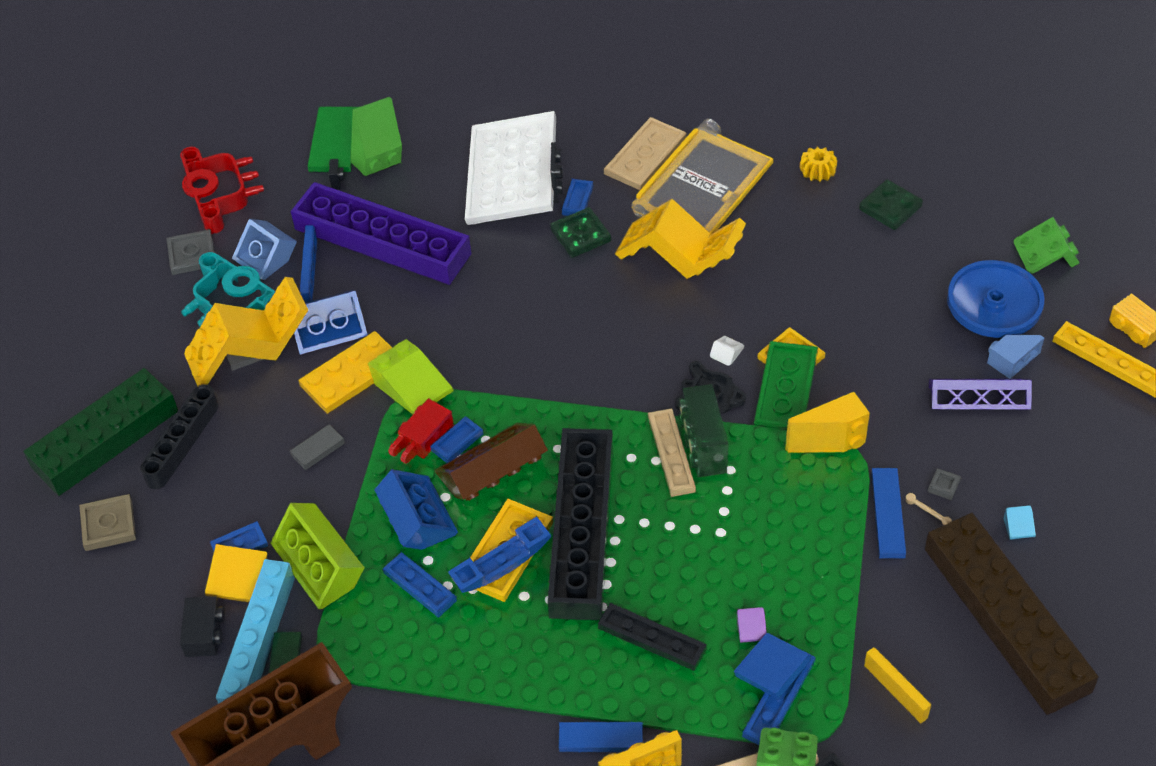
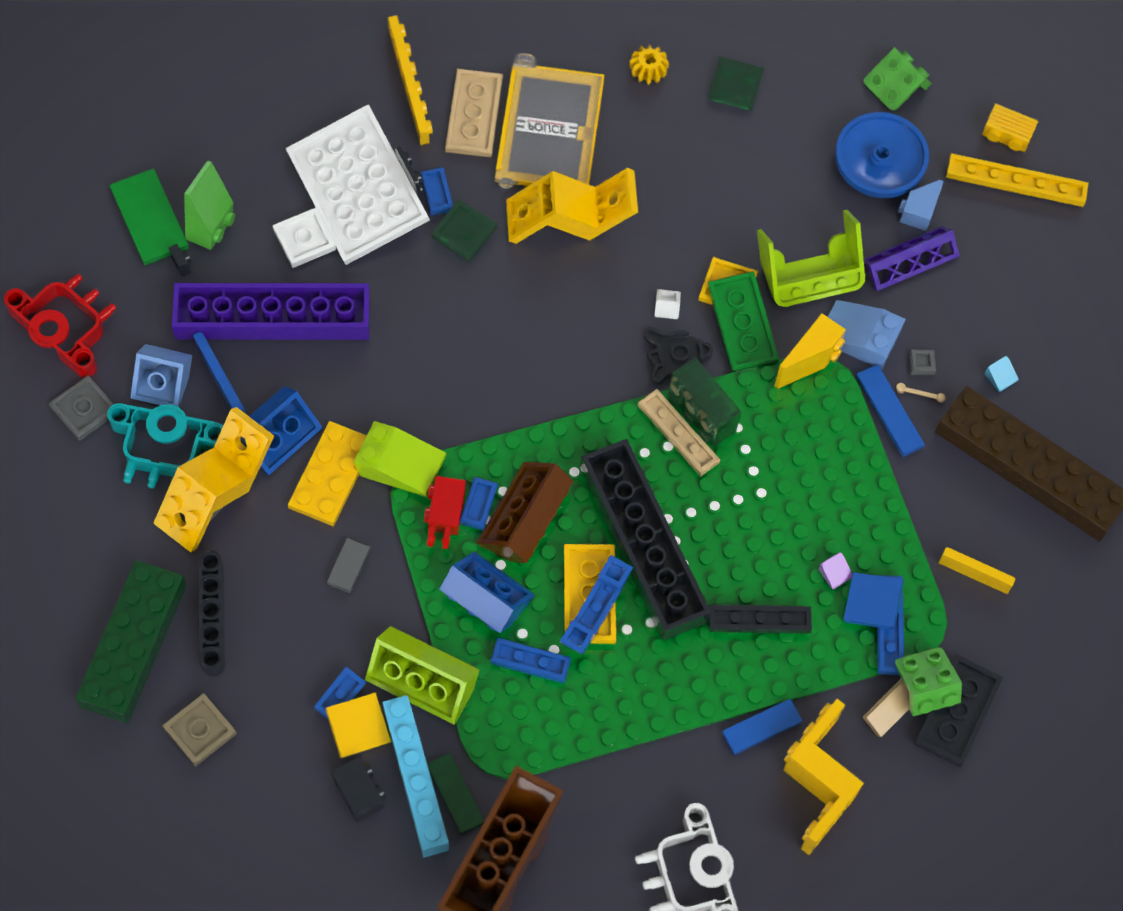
camera: 35 degrees left, 15 degrees up
(444, 192) = (304, 237): none -> white plate
(603, 115) = (412, 87): none -> yellow plate
(877, 377) = (816, 276): none -> lime windscreen
(901, 438) = (868, 332): none -> medium blue slope

